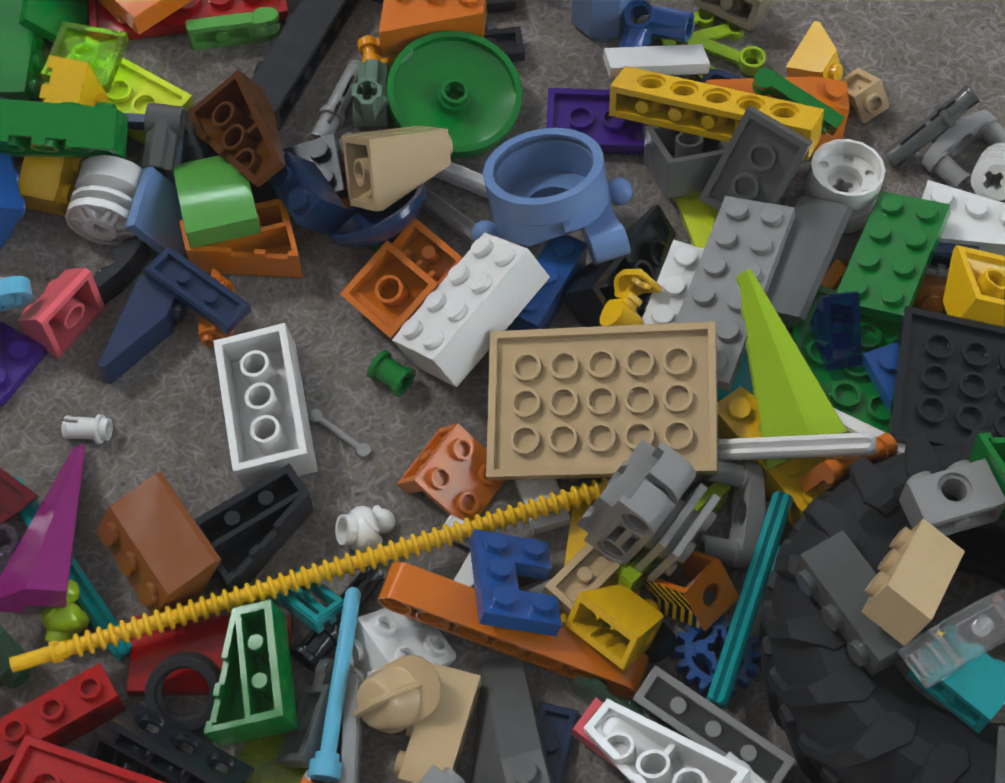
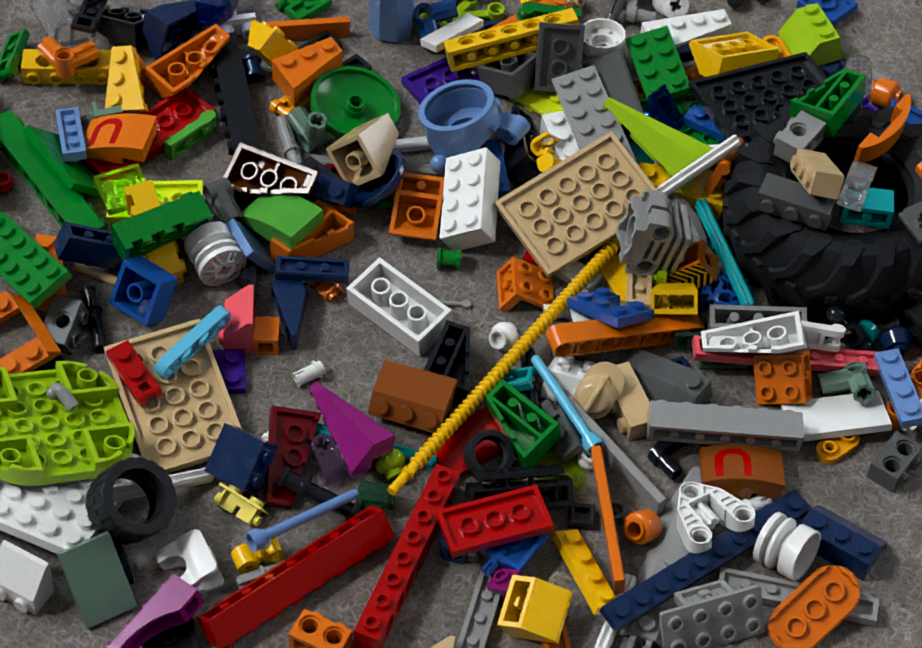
camera: 40 degrees left, 10 degrees down
(81, 344) = (266, 335): none -> orange brick

